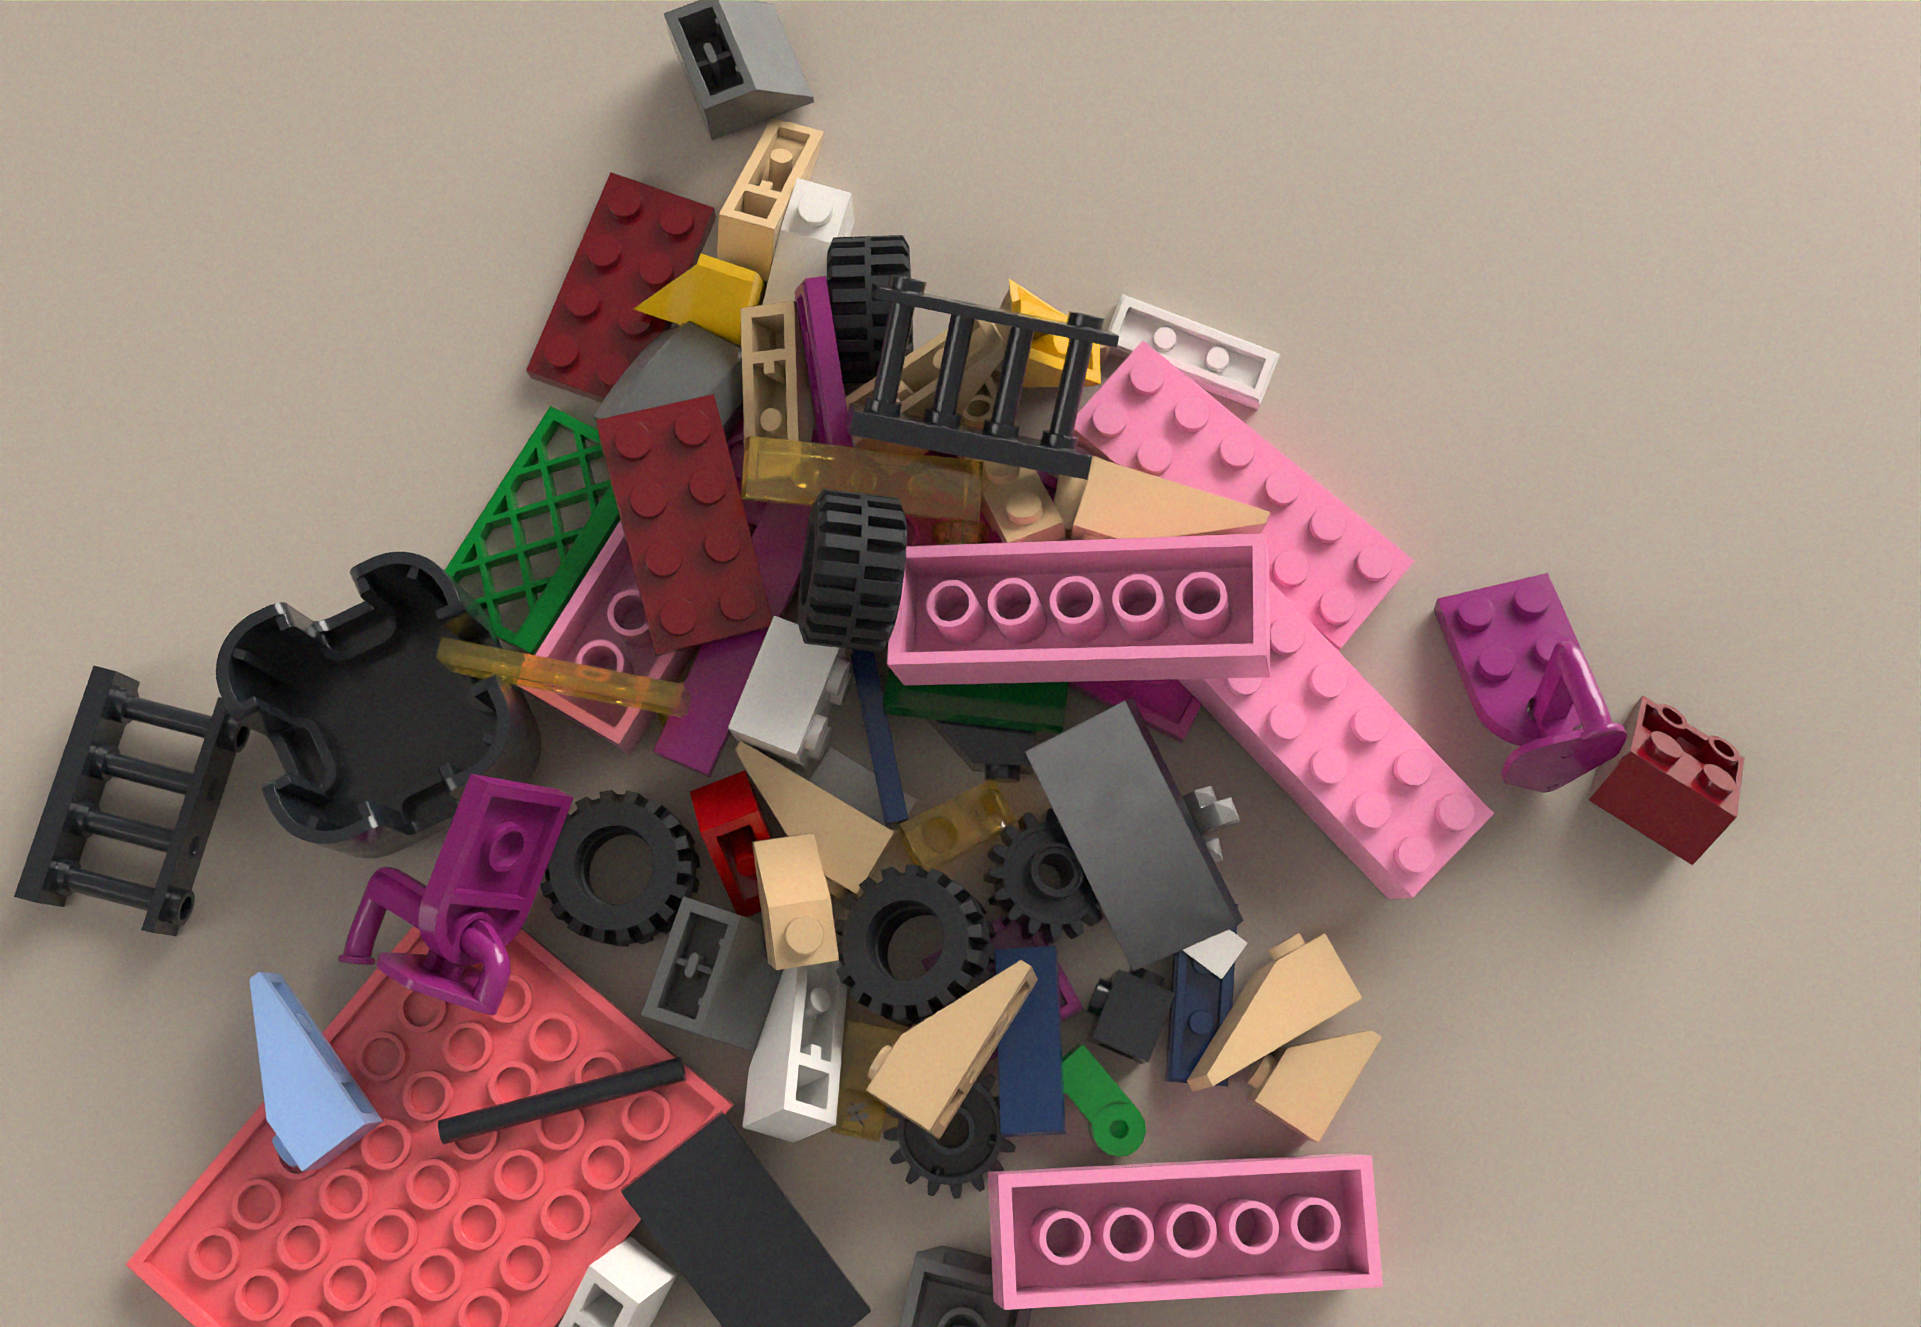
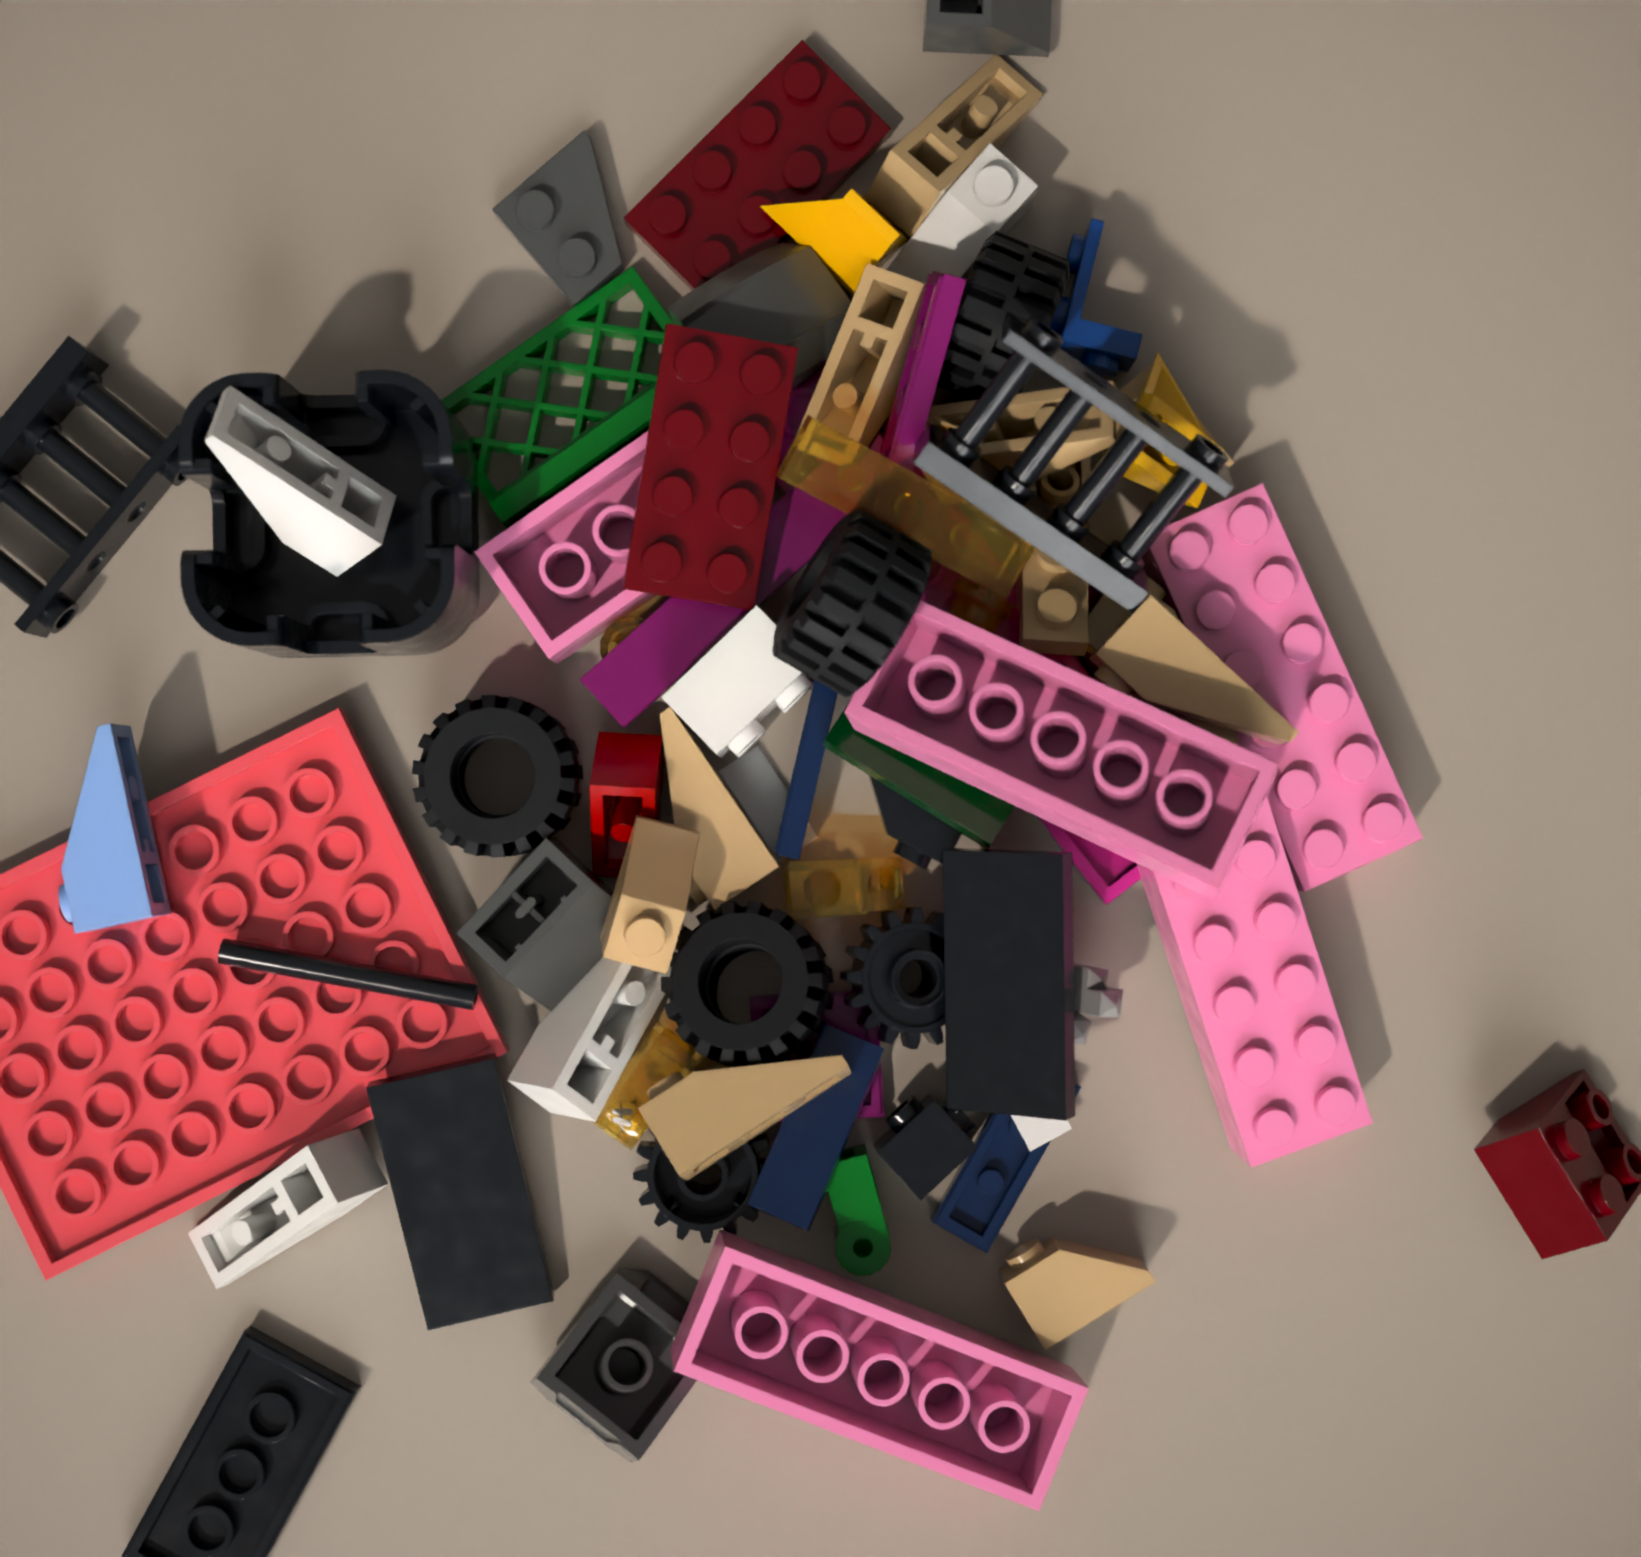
camera: 25 degrees right, 10 degrees up
(346, 693) = (299, 486): none -> white slope
(473, 896) = (339, 754): magenta plate -> none
(479, 396) = (566, 221): none -> dark grey wing
(565, 677) = (522, 571): clear yellow tile -> none
(971, 288) = (1096, 345): none -> blue bracket
(1204, 354) = (1311, 509): white tile -> none
(1277, 1004) = (1069, 1204): tan slope -> none
(1522, 654) = (1482, 974): magenta plate -> none

